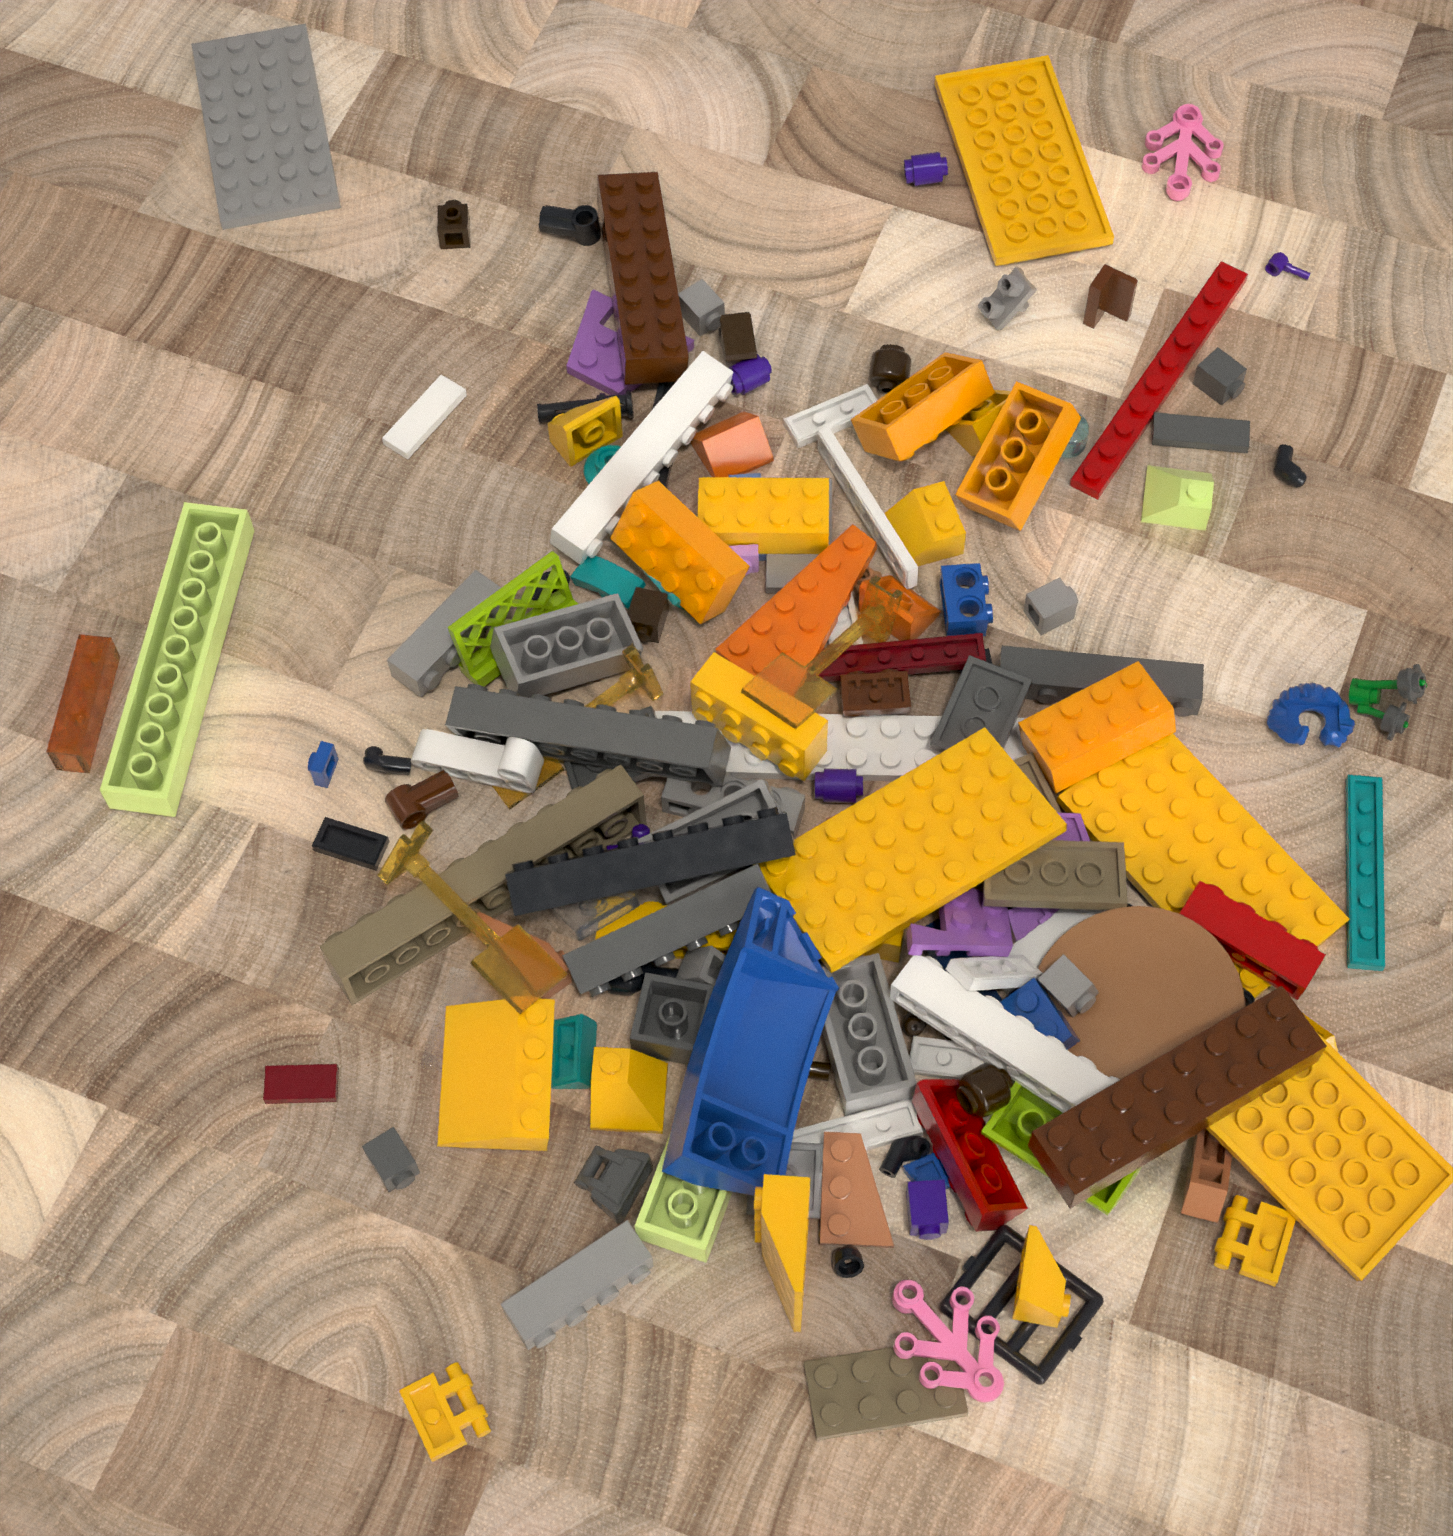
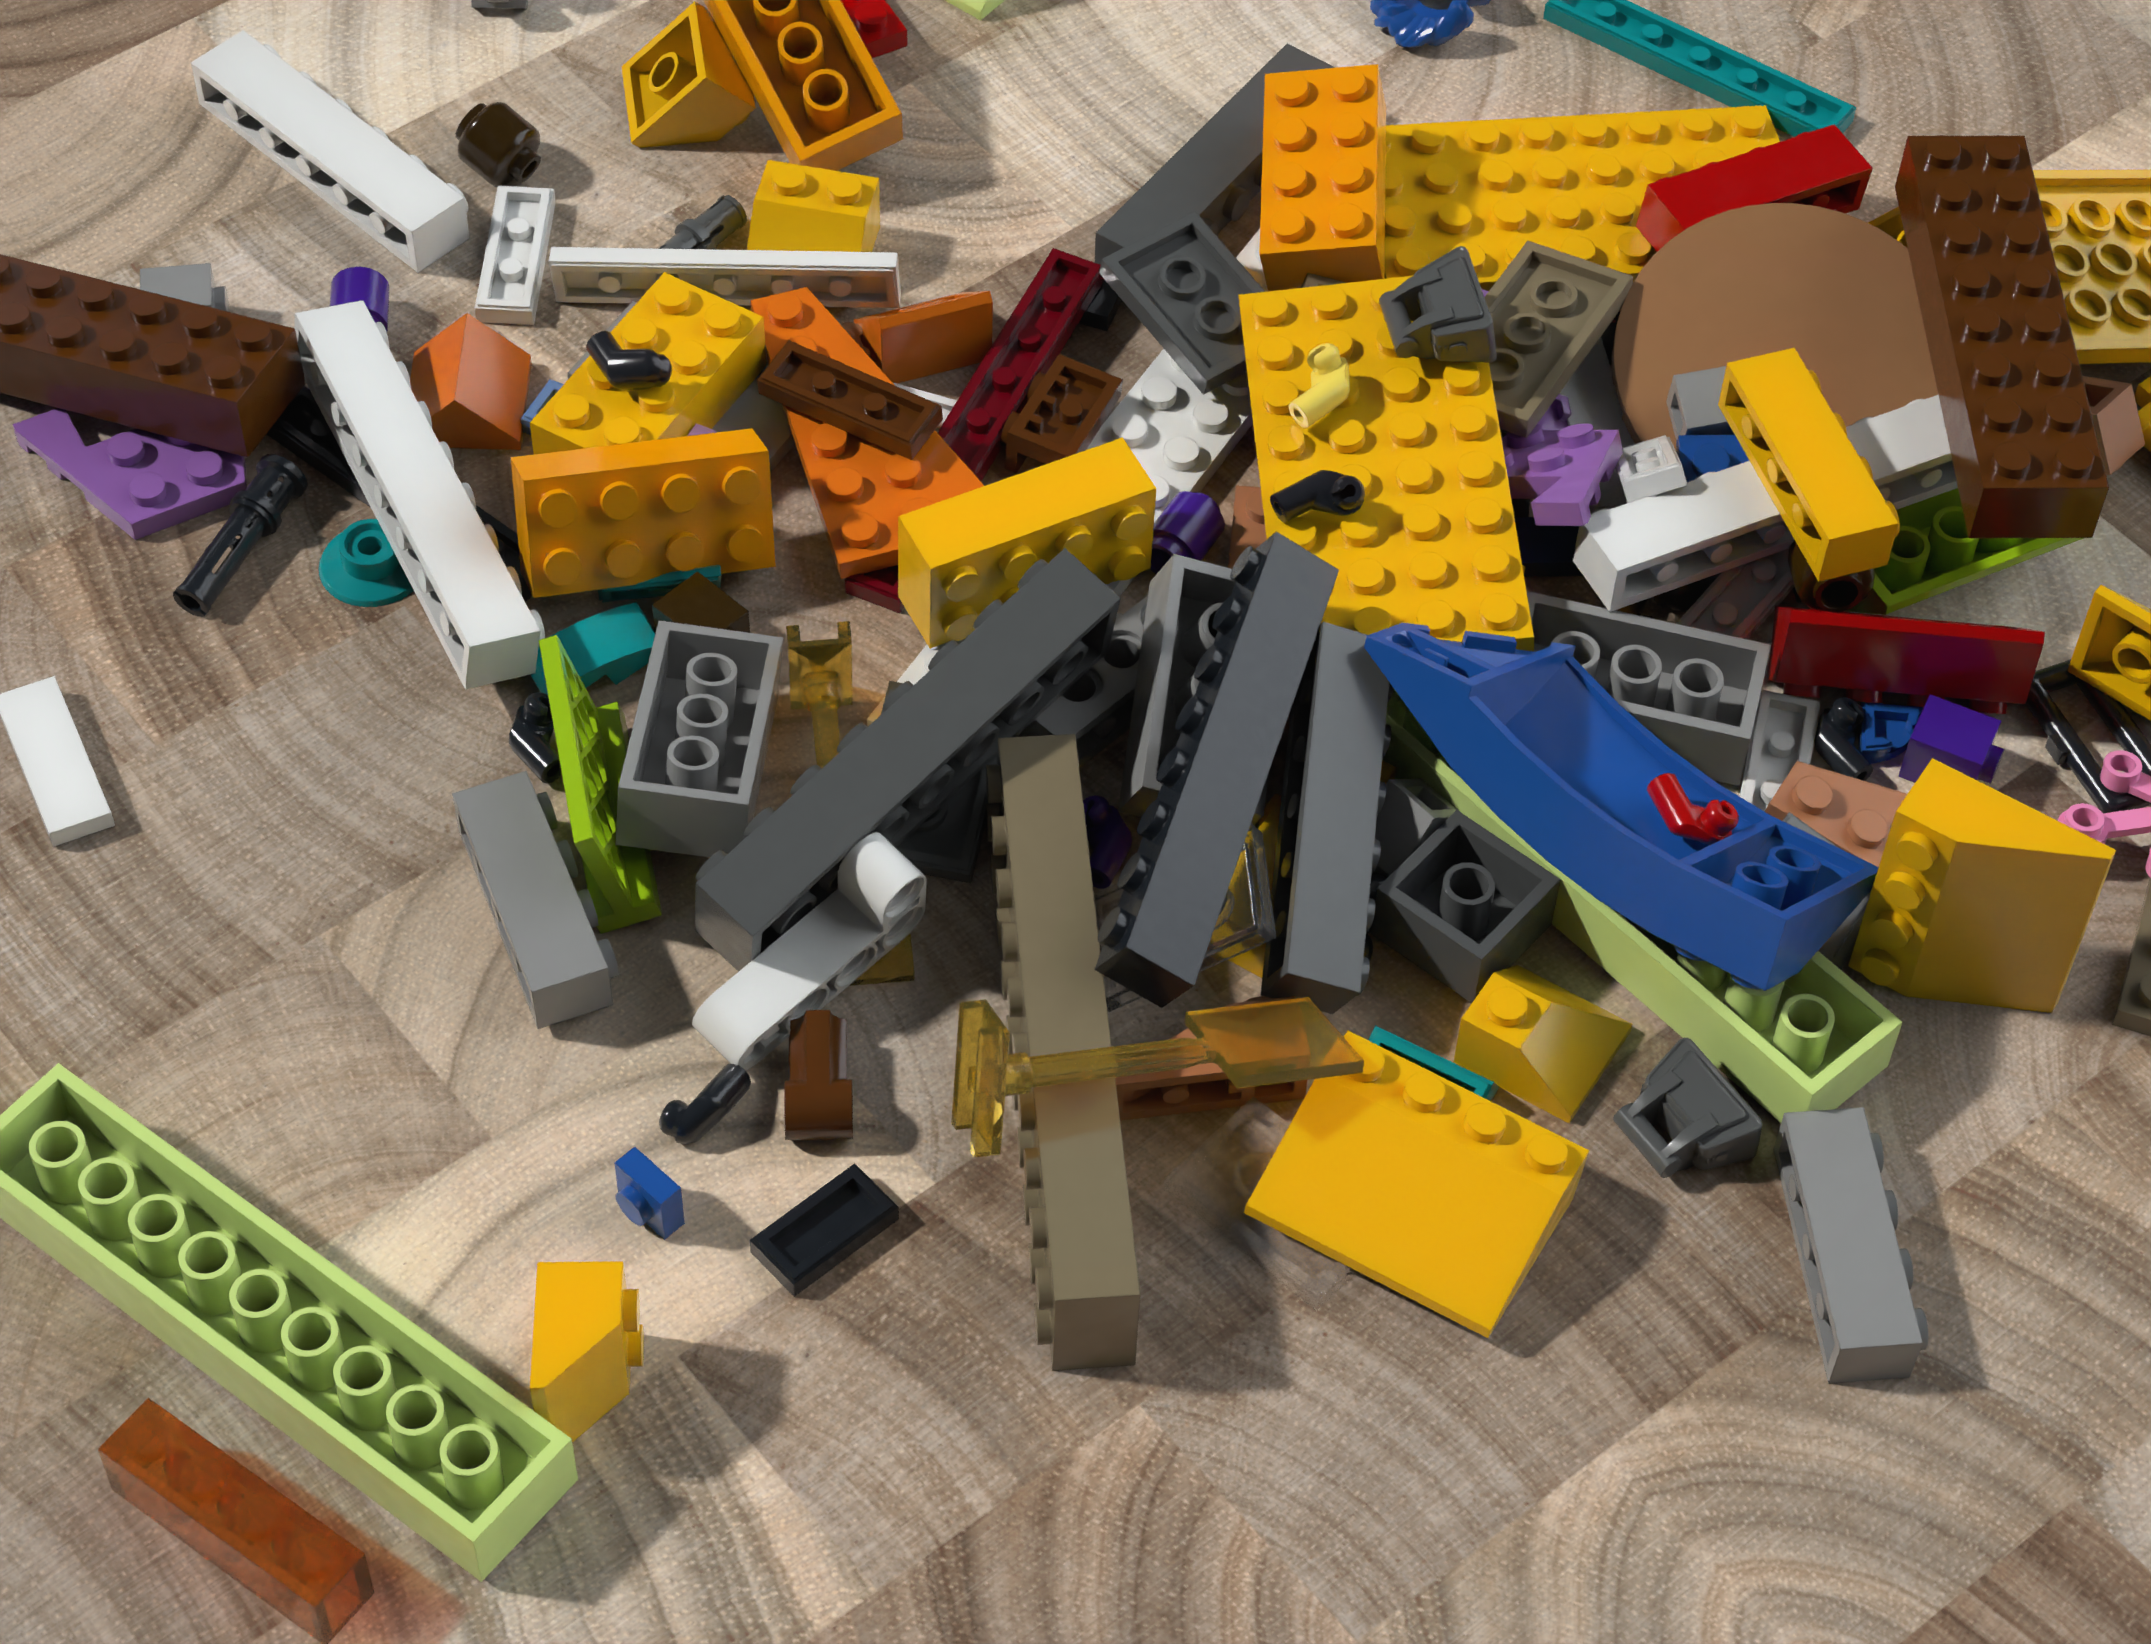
camera: 65 degrees left, 10 degrees down
(217, 779) = (583, 1342): none -> yellow slope
(301, 1083) = (1245, 1499): dark red tile -> none
(391, 1160) = (1480, 1412): dark grey brick -> none
(434, 1417) = (1970, 1549): yellow plate -> none
(586, 429) = (283, 547): yellow slope -> none
(737, 336) = (290, 278): dark brown slope -> none
(746, 496) = (628, 368): none -> black arm
(759, 1090) = (1689, 820): none -> red arm
(796, 690) = (1023, 455): clear yellow piece -> none
(808, 598) = (850, 399): none -> reddish brown tile
(838, 307) = (332, 150): none -> white brick
(860, 826) = (1321, 492): none -> black arm
(890, 481) = (709, 227): none -> dark grey pin
(923, 406) = (614, 126): light orange brick -> none
(931, 796) = (1328, 386): none -> light yellow arm
(964, 600) = (973, 250): blue brick -> none
(1013, 824) = (1446, 312): none -> dark grey piece
(1013, 1040) = (1808, 464): none -> yellow brick
(1050, 606) = (1057, 164): light grey brick -> none

